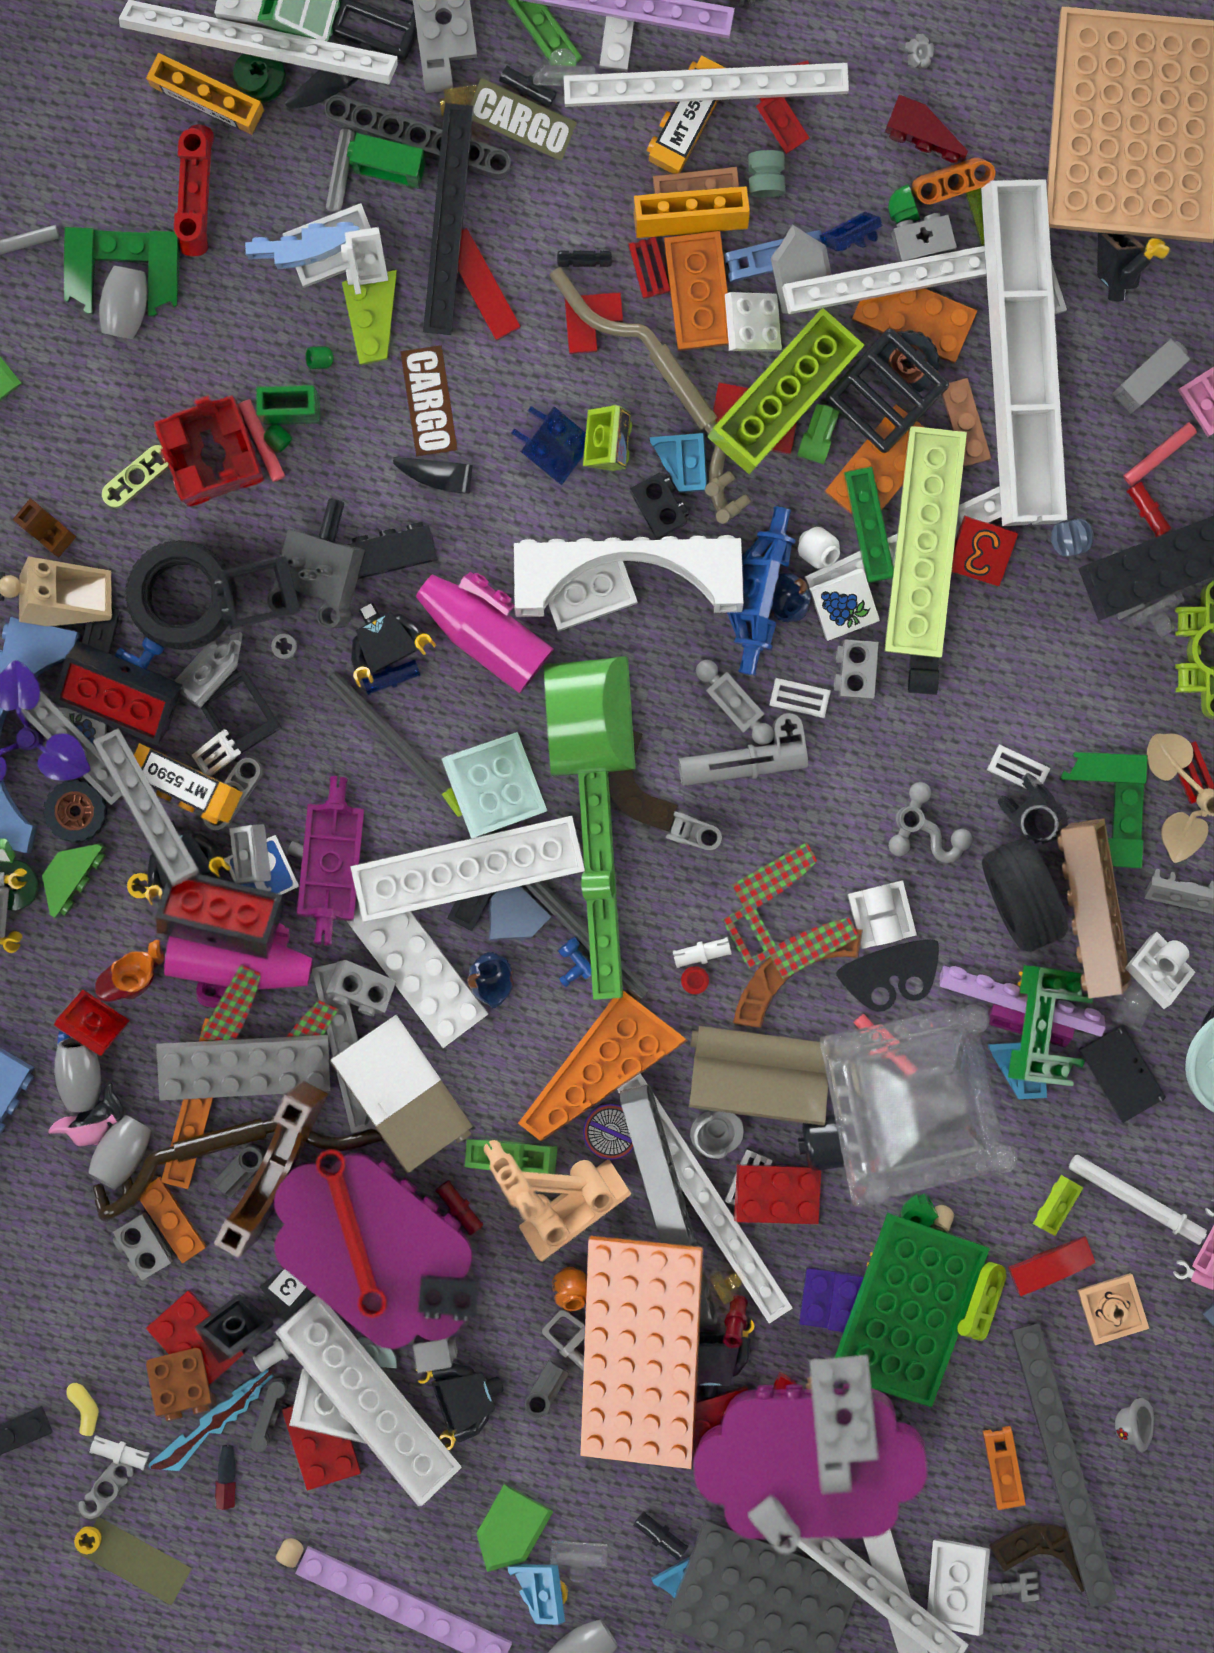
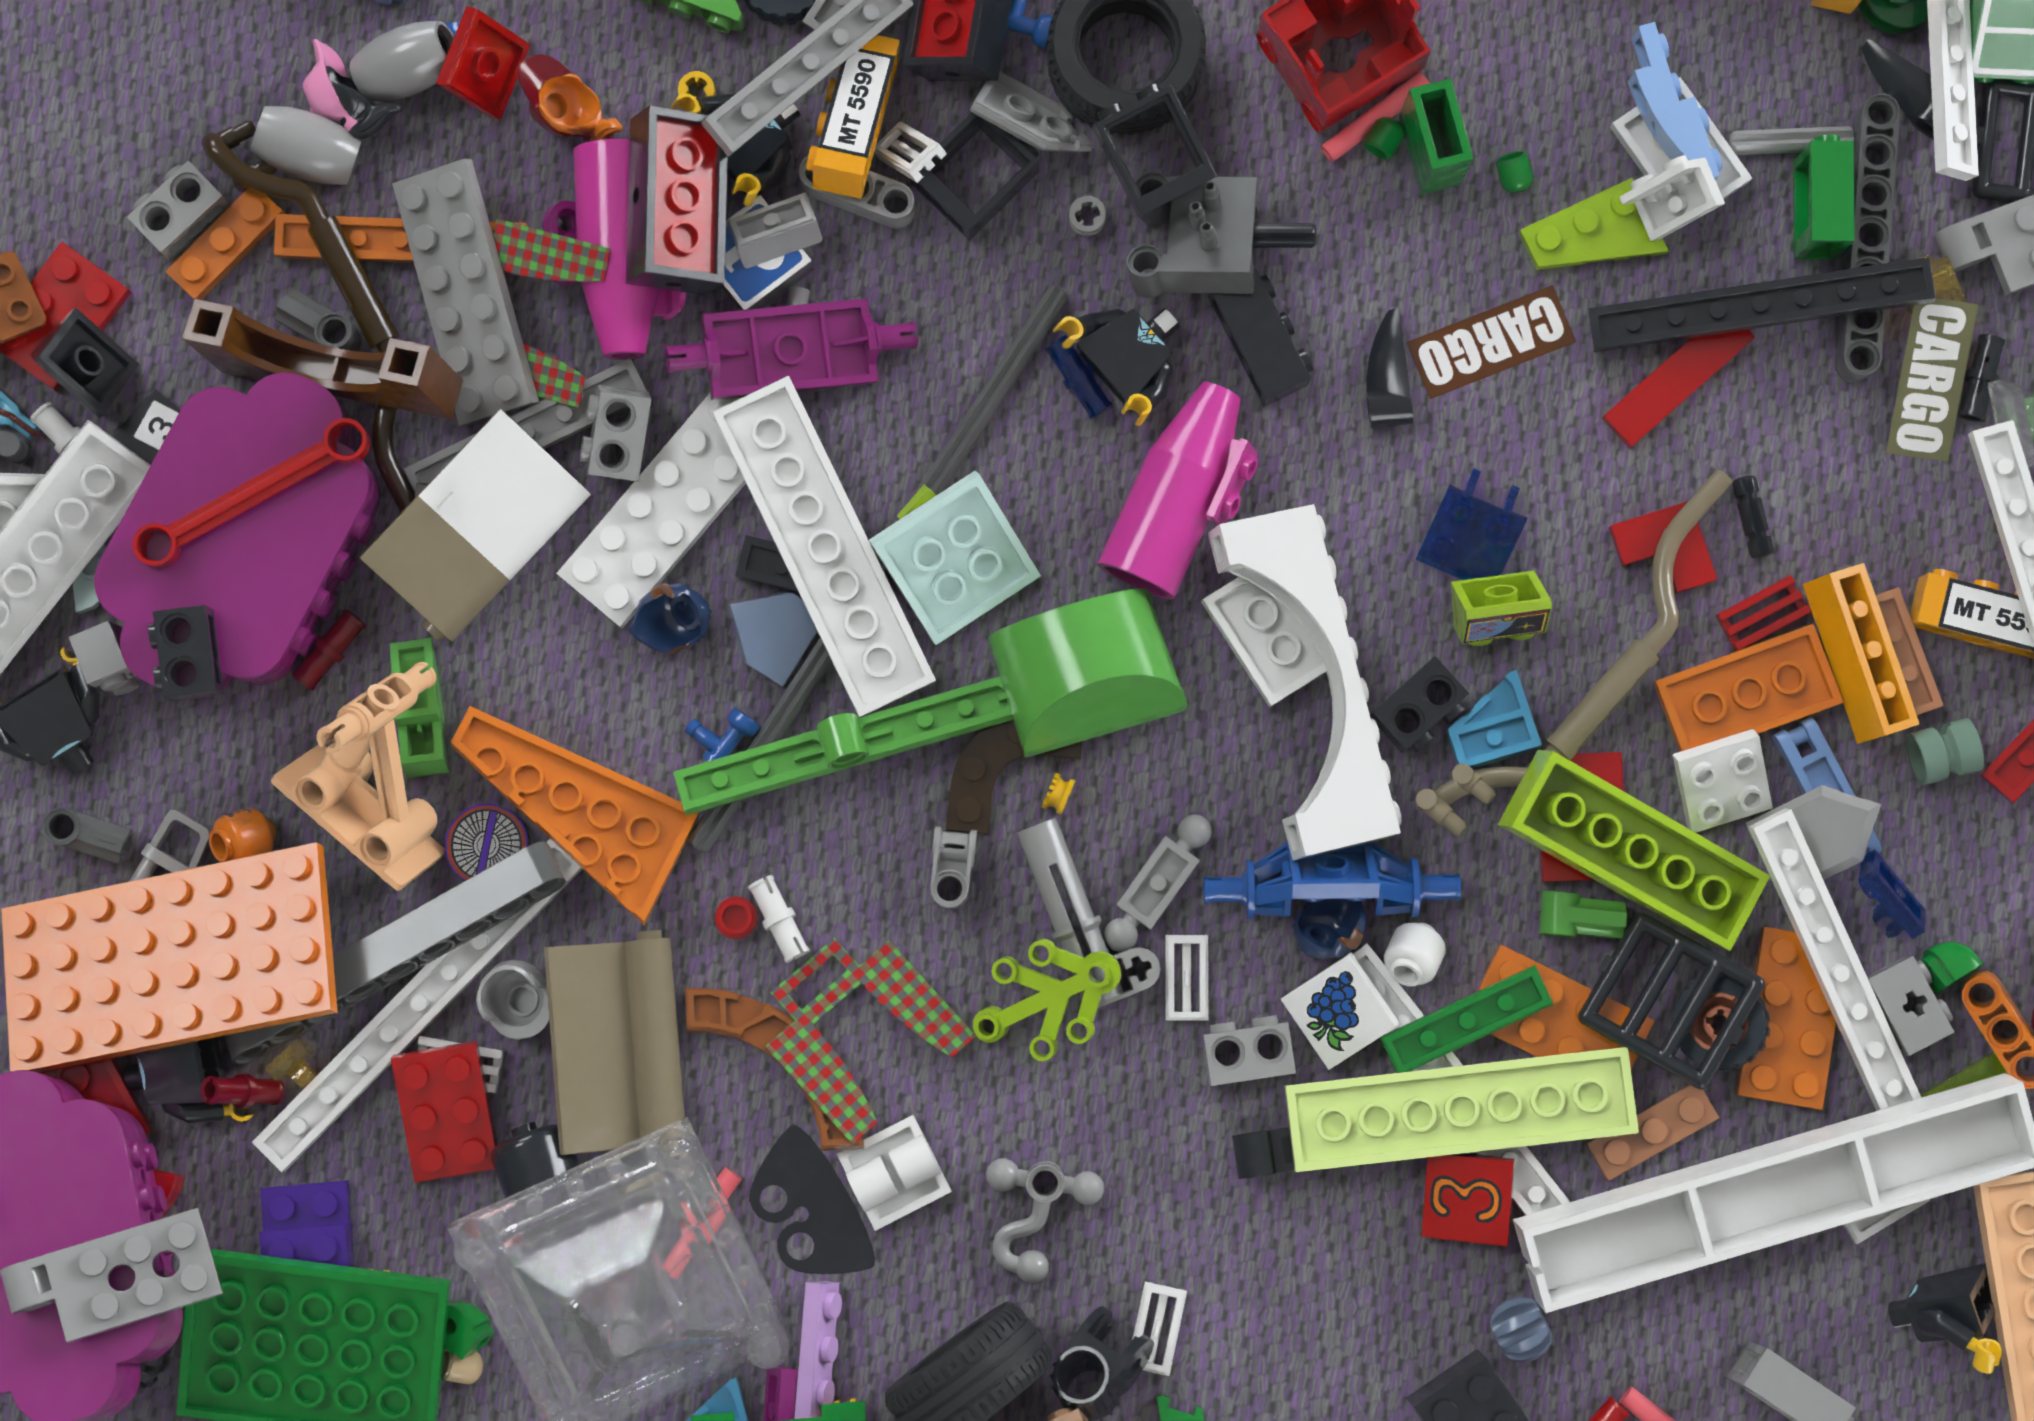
camera: 75 degrees right, 5 degrees down
(662, 753) = (1059, 795): none -> yellow bush
(793, 786) = (1052, 994): none -> lime plant

